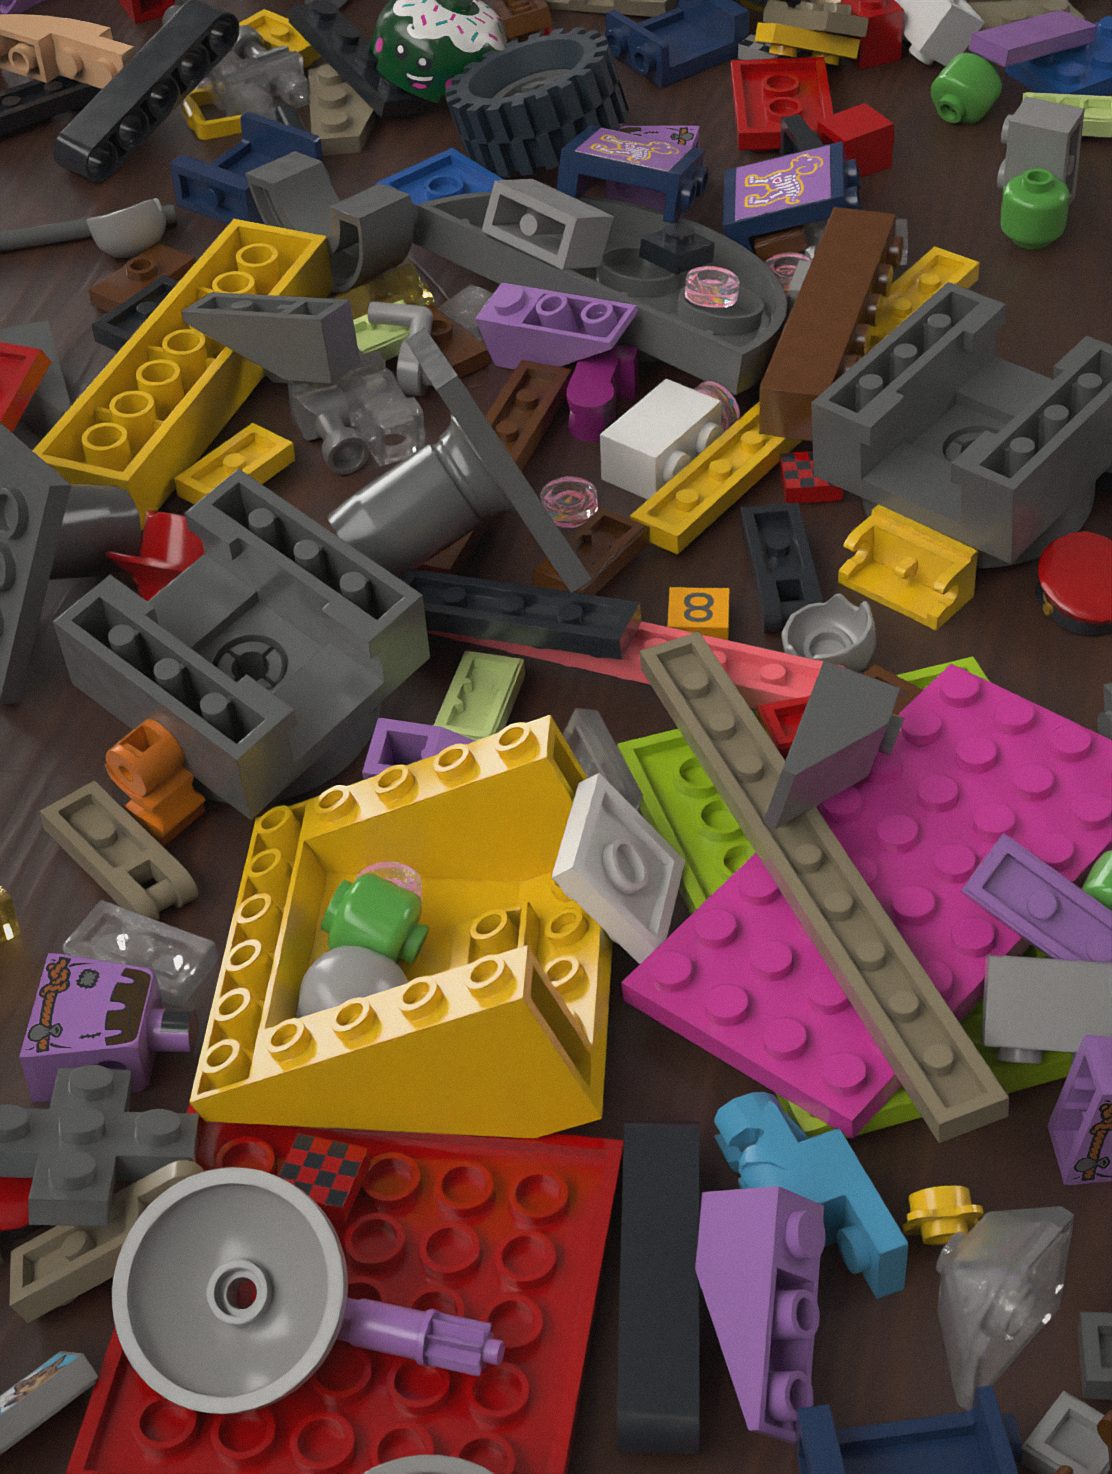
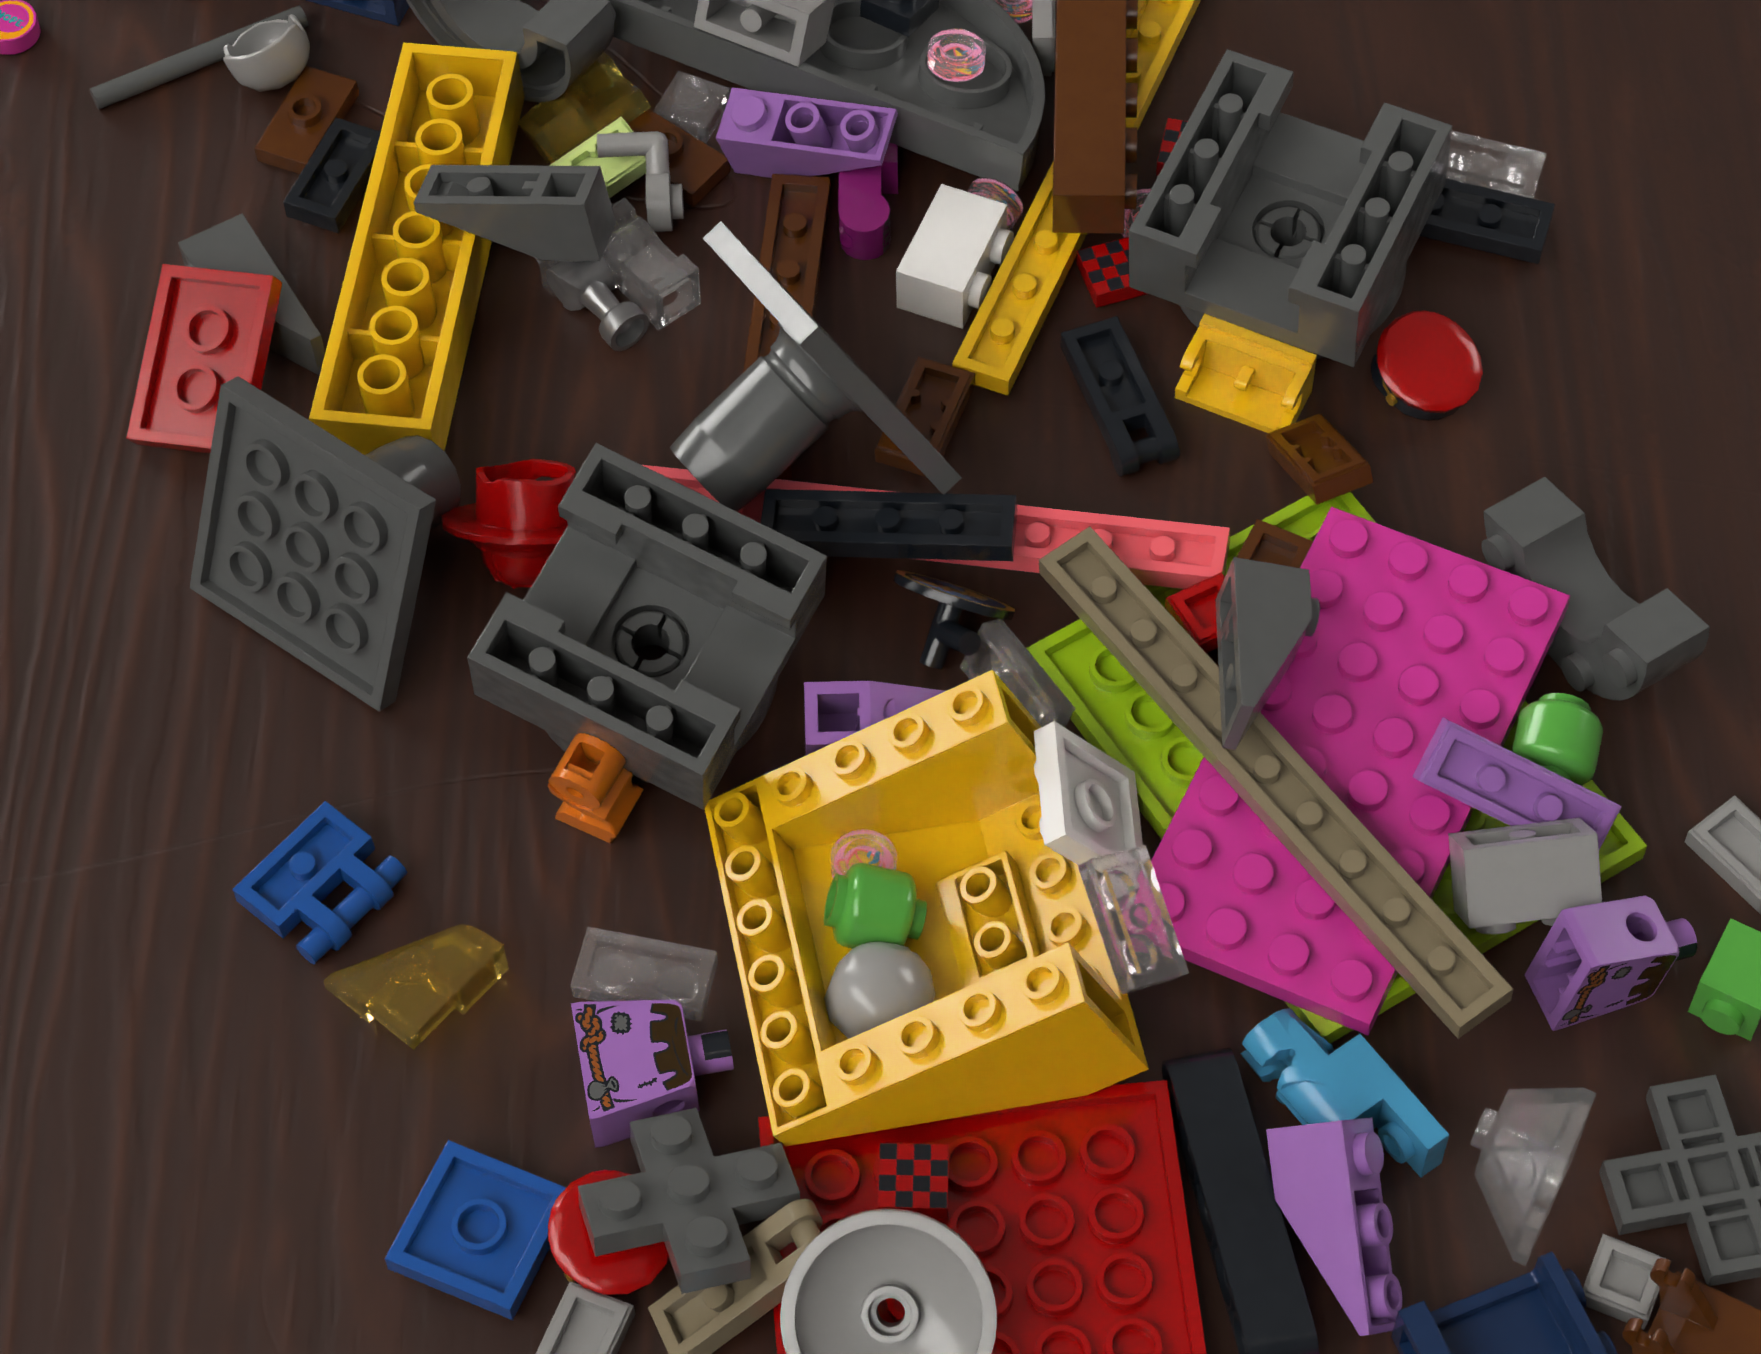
camera: 15 degrees left, 15 degrees up
(117, 852) = (576, 865): dark tan plate -> none
(251, 450) = (514, 370): yellow plate -> none
(421, 1336) = (1062, 1315): medium lavender piece -> none
(481, 695) = (870, 622): yellowish green plate -> none
(556, 693) = (945, 630): none -> black shield
(569, 501) = (877, 346): clear tile -> none
(627, 972) = (1133, 919): none -> clear plate
(700, 611) = (1052, 469): light orange tile -> none
(832, 633) = (1195, 481): light grey hair -> none
(941, 1213) = (1463, 1092): yellow plate -> none
(957, 636) = (1319, 458): none -> reddish brown plate

